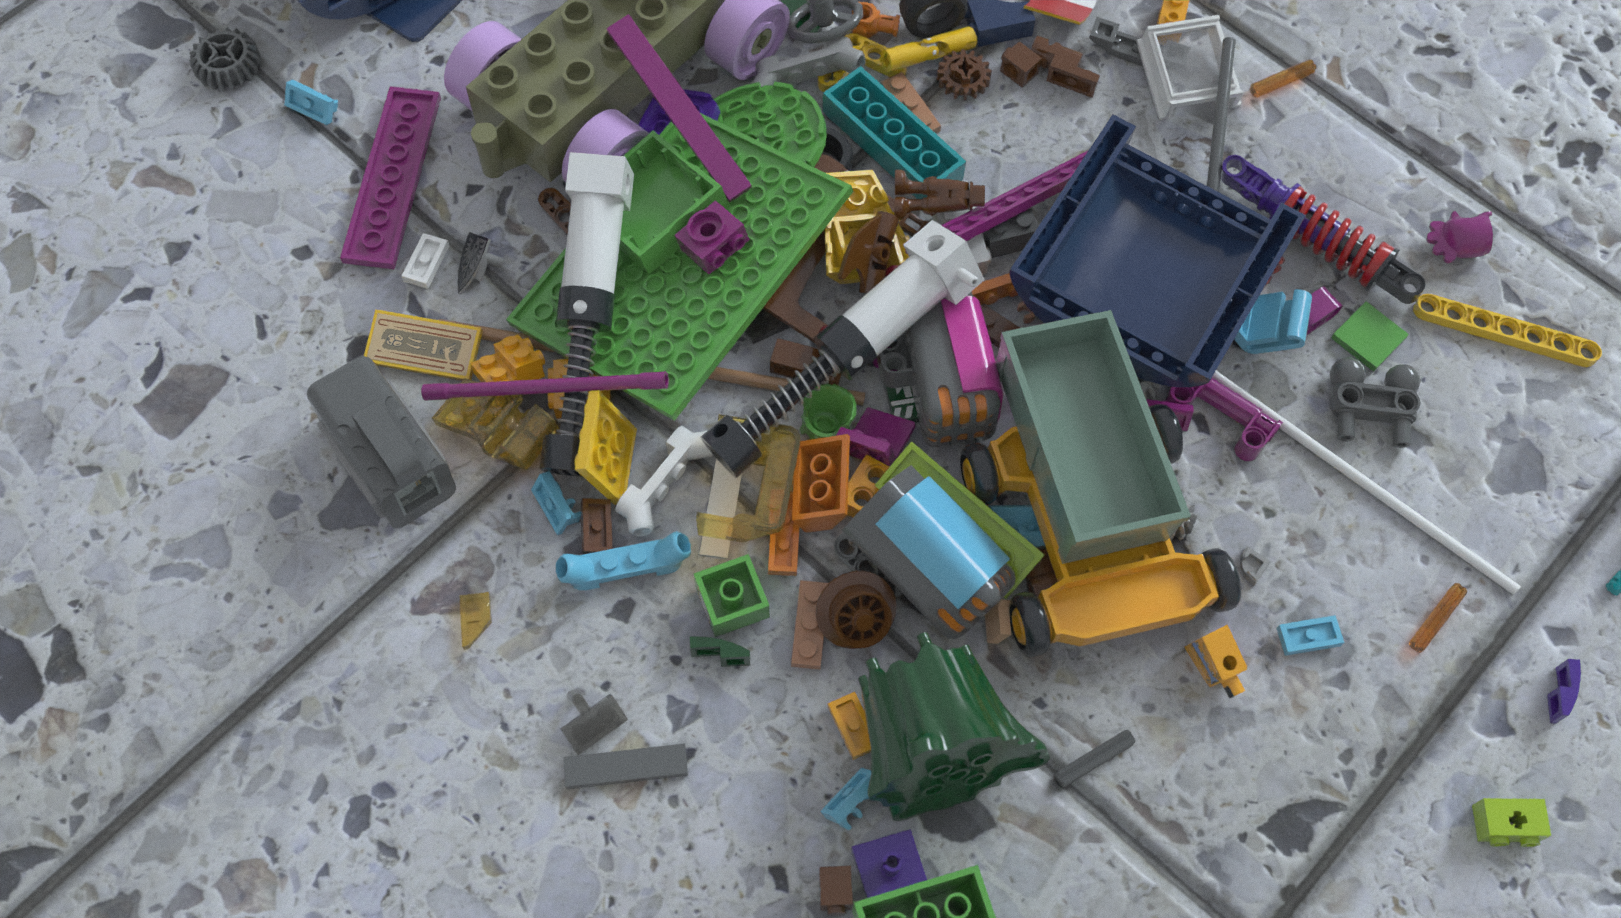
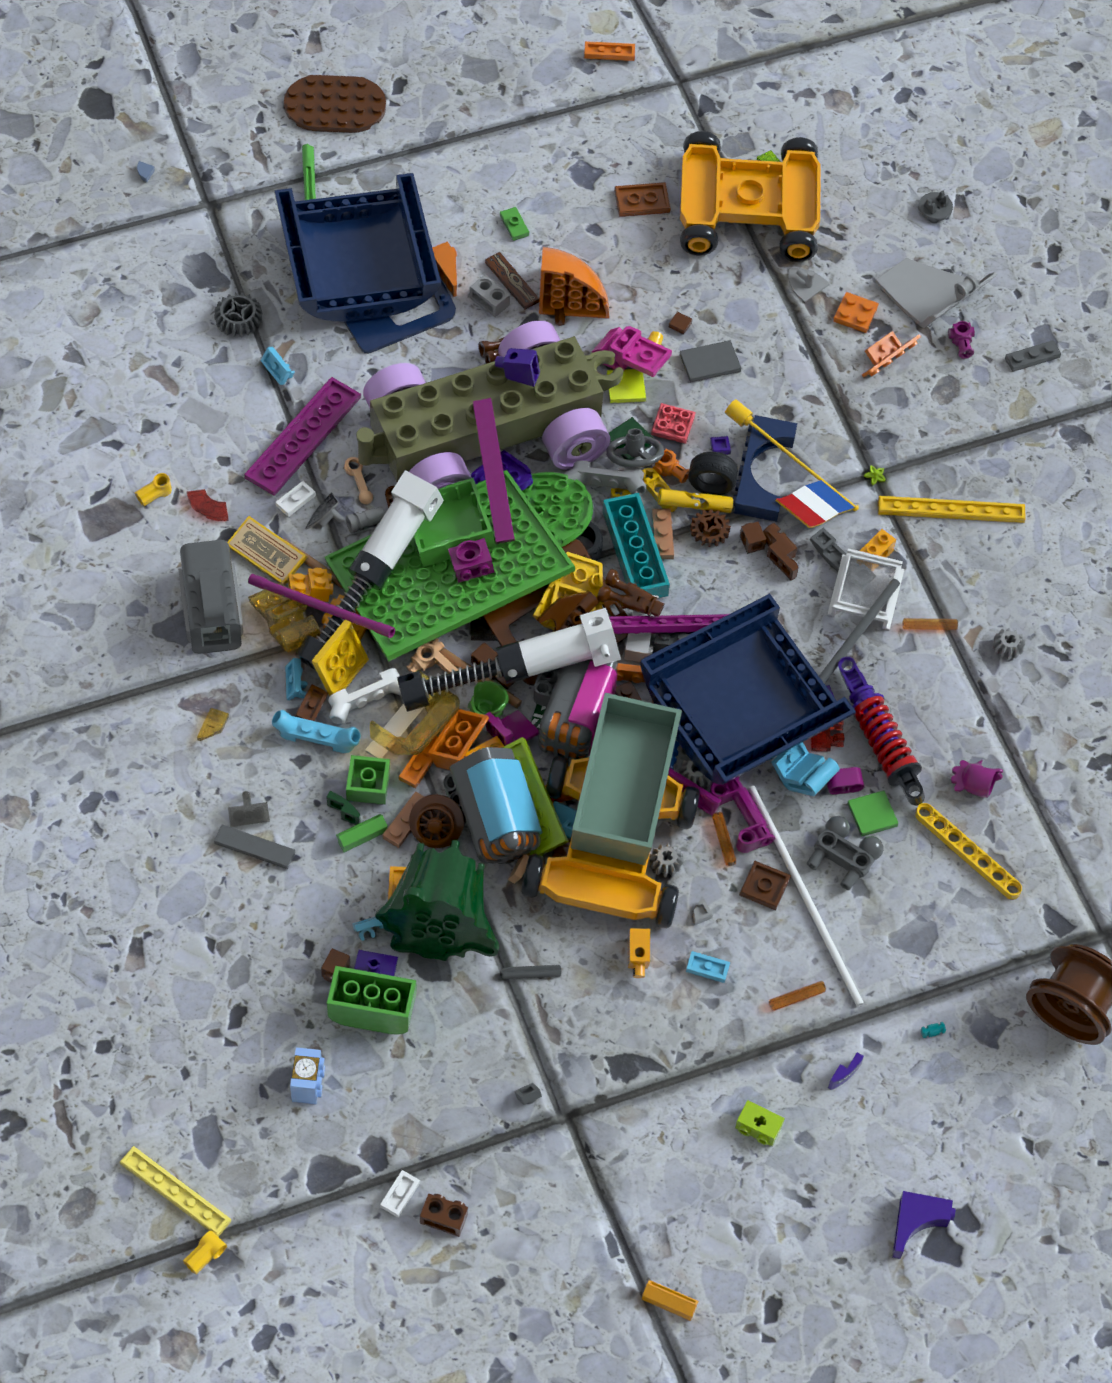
camera: 25 degrees right, 5 degrees down
(225, 331) = (154, 490): none -> yellow piece
(311, 321) = (206, 506): none -> clear red tile
(513, 217) = (365, 495): none -> light nougat piece
(533, 245) = (364, 519): none -> light grey axle
(711, 403) = (421, 663): none -> light nougat piece
(761, 673) = (362, 832): none -> bright green piece
(1220, 454) = (724, 839): none -> clear orange axle
(1305, 490) = (765, 885): none -> reddish brown tile
(1385, 61) = (1008, 643): none -> light grey gear

